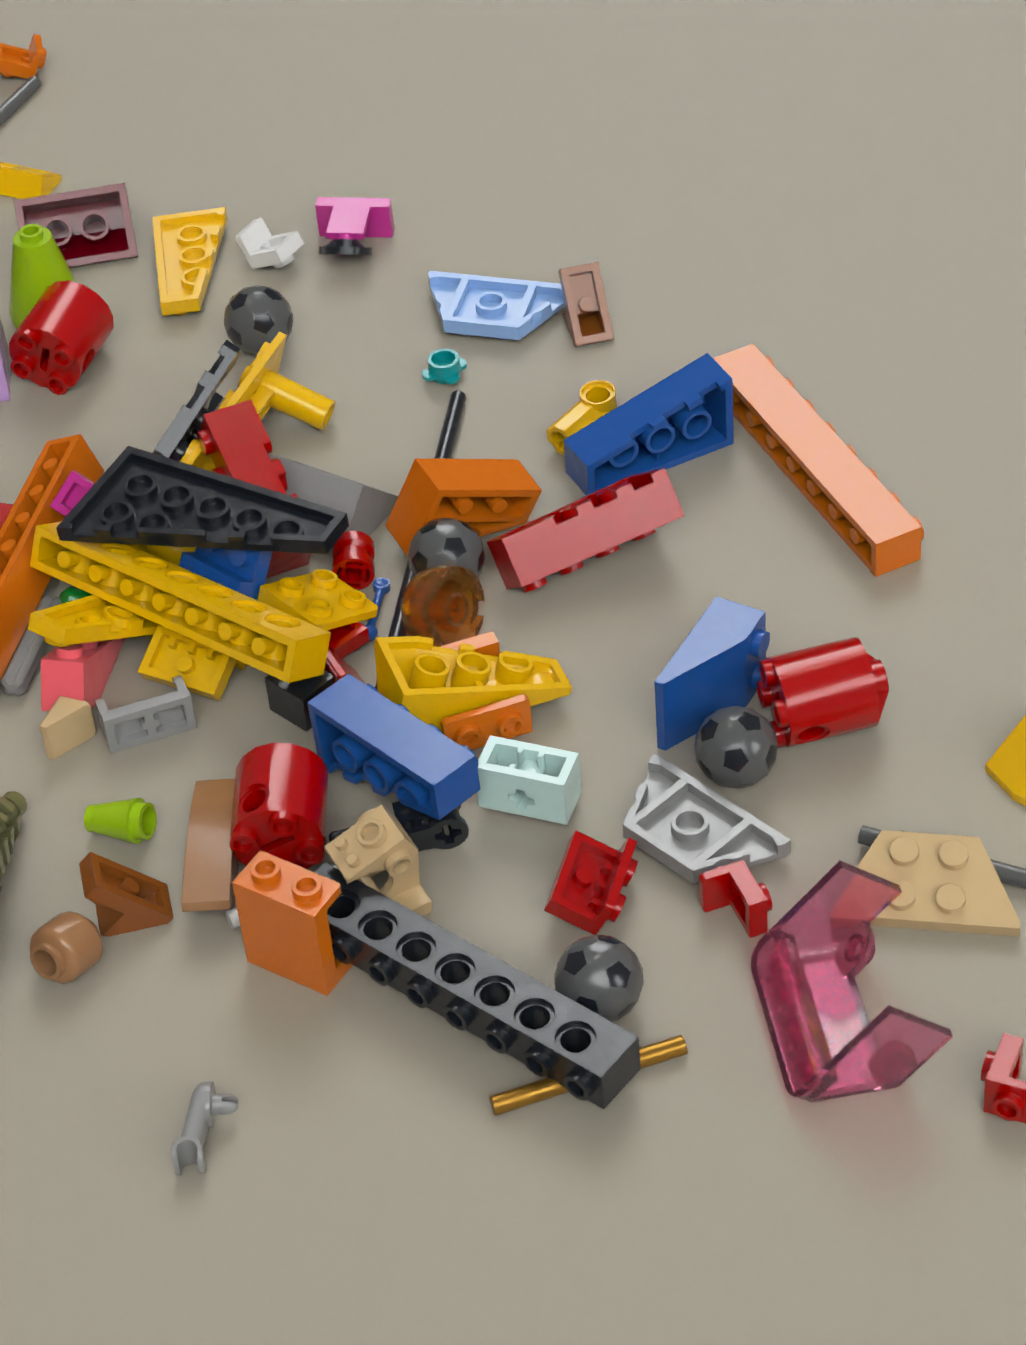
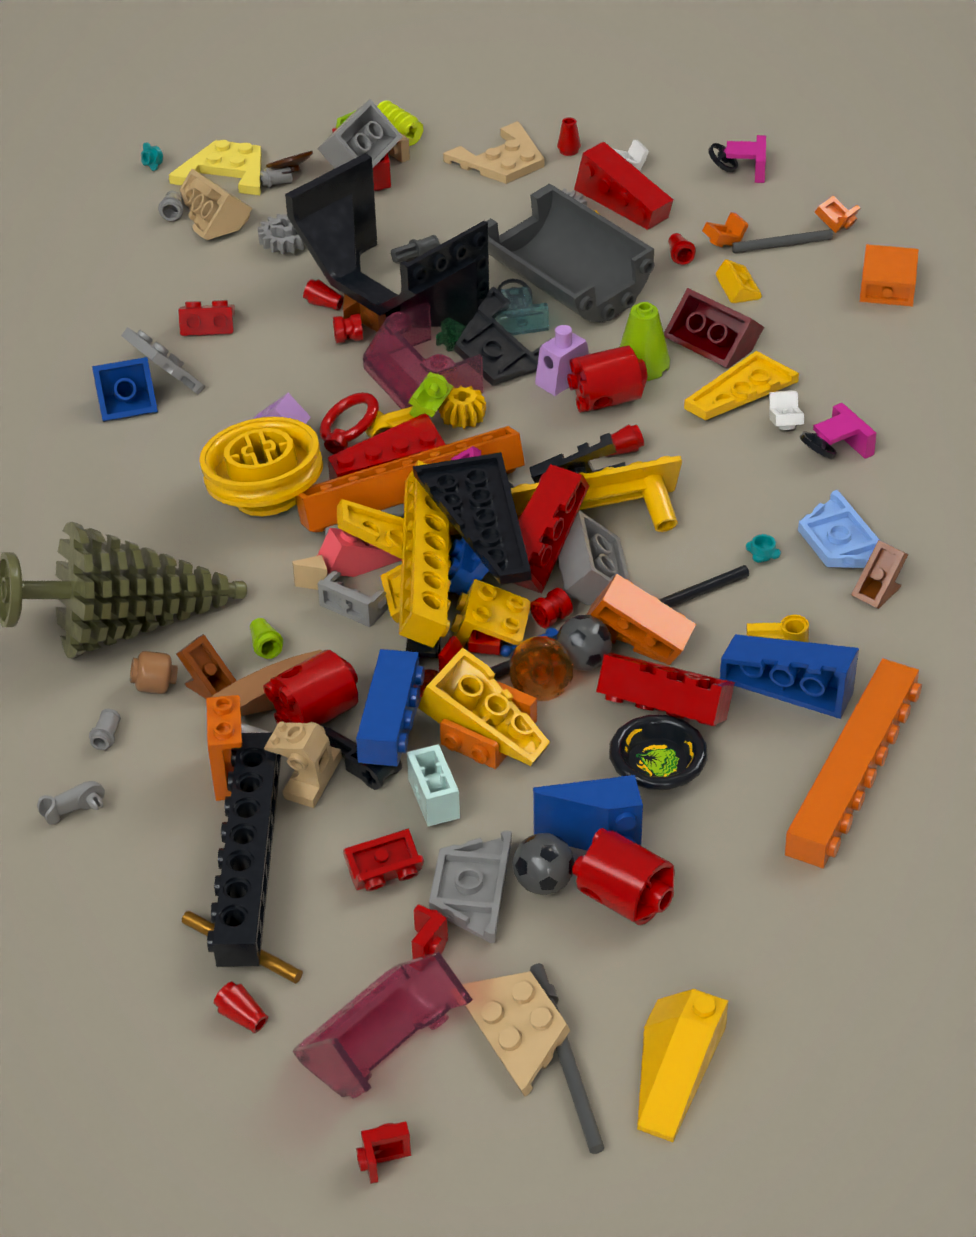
camera: 50 degrees right, 0 degrees up
(114, 1047) = (103, 734): none -> light grey pin
(161, 380) = (627, 440): none -> red cone
(162, 72) = (889, 275): none -> orange panel
(257, 317) = (708, 446): dark grey piece -> none
(600, 975) = (300, 905): dark grey piece -> none
(661, 582) = (658, 751): none -> black piece
(689, 1114) = (239, 1006): none -> red cone

